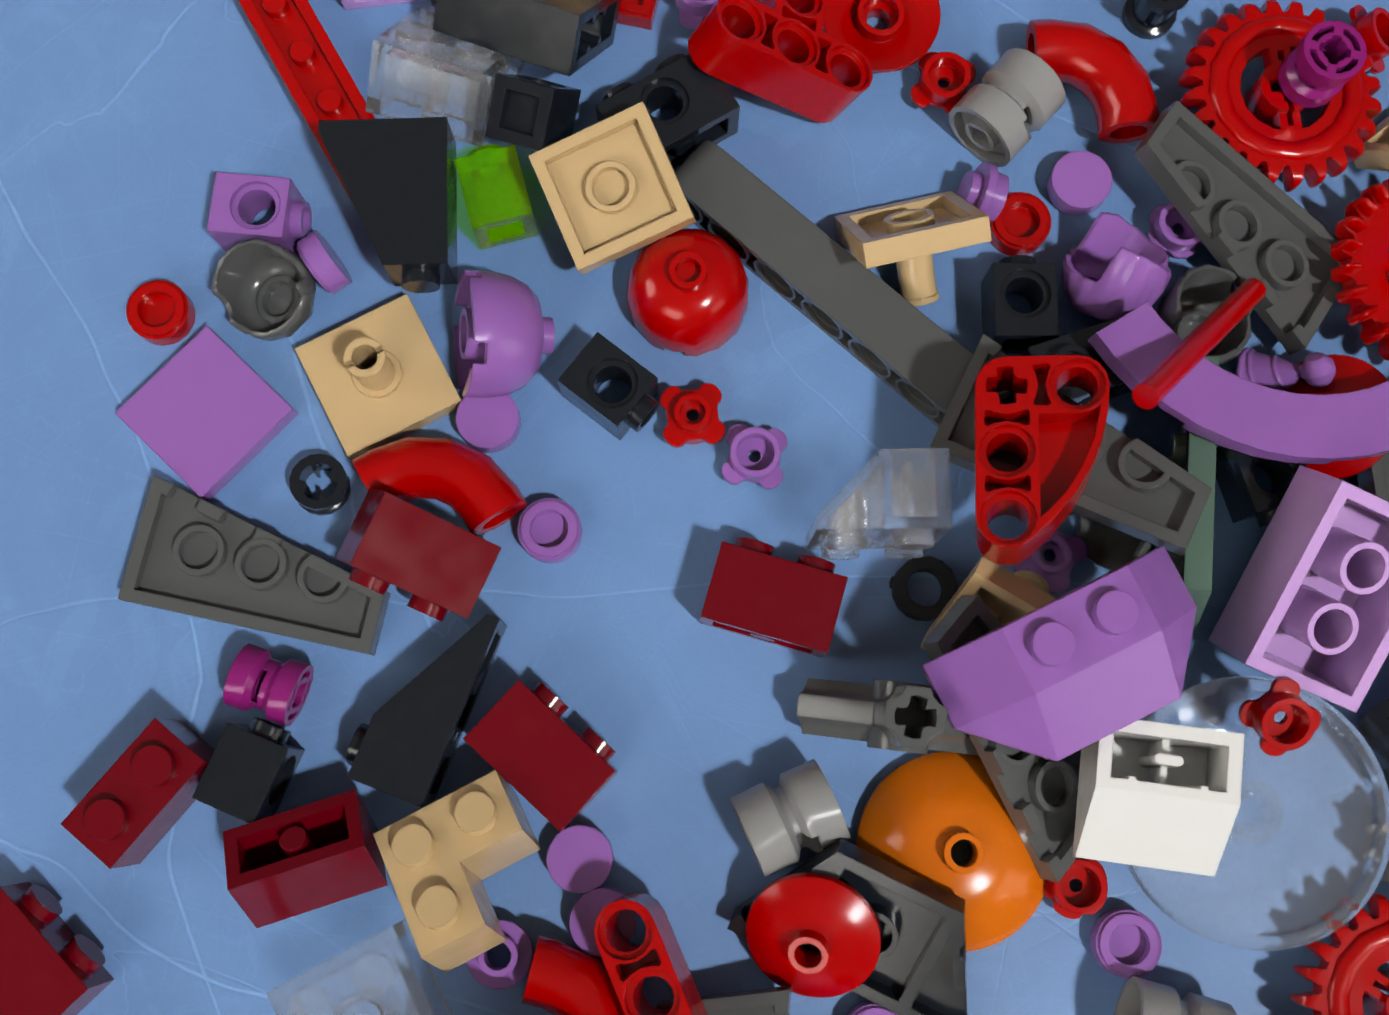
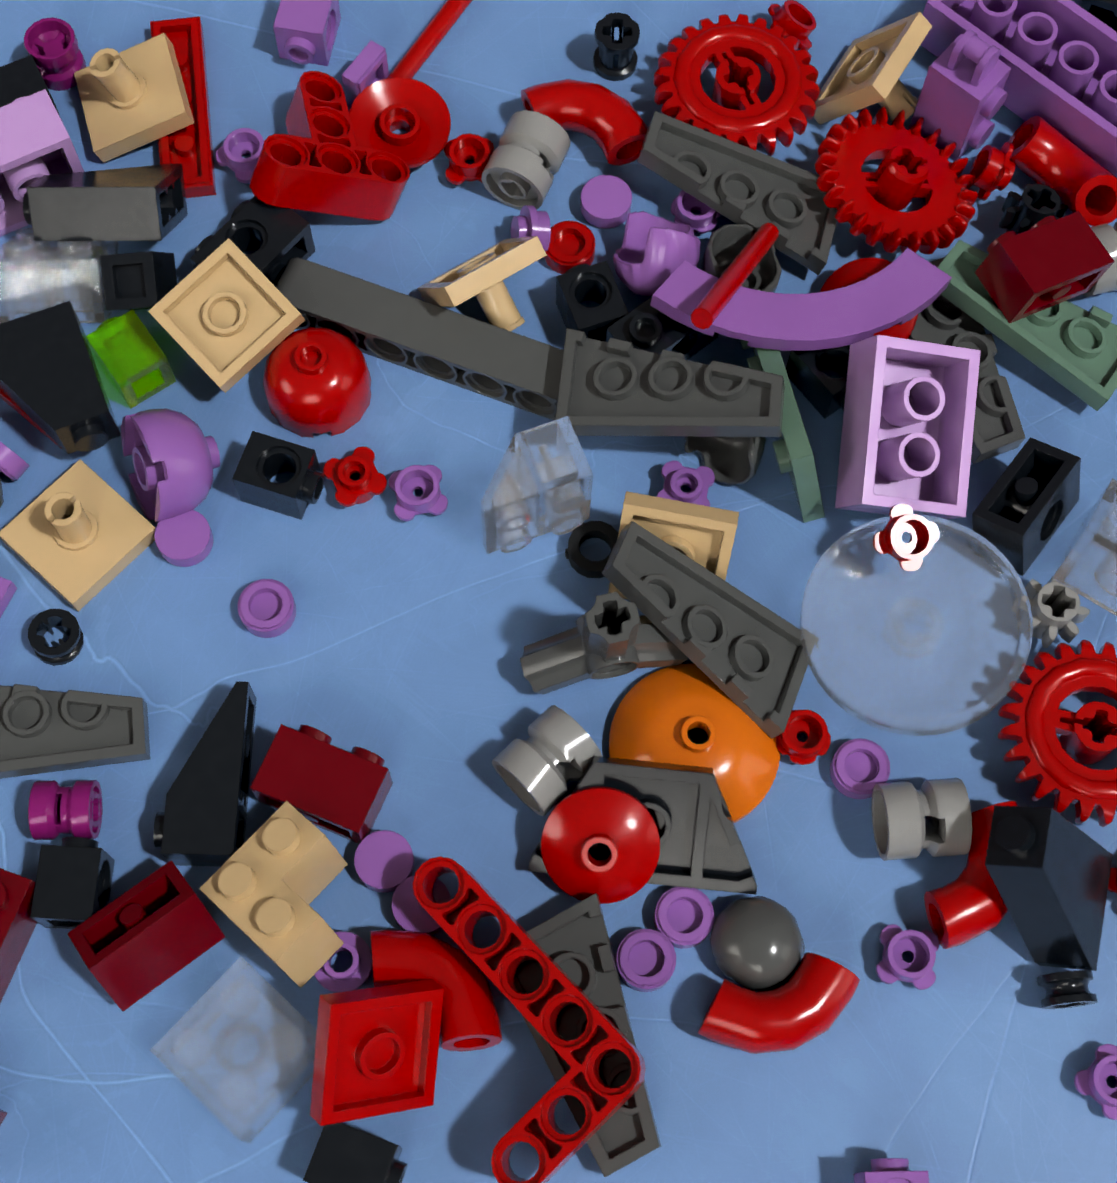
camera: 20 degrees left, 10 degrees down
(417, 553) = (160, 655): dark red brick -> none
(444, 472) = (160, 588): red cylinder -> none
(774, 597) = (472, 594): dark red brick -> none
(1049, 435) = (649, 380): red beam -> none
(1074, 663) = (720, 538): medium lavender wedge -> none
(1159, 797) = (829, 624): white slope -> none
(1282, 374) = (838, 275): medium lavender piece -> none
(1322, 64) = (755, 49): magenta wheel -> none

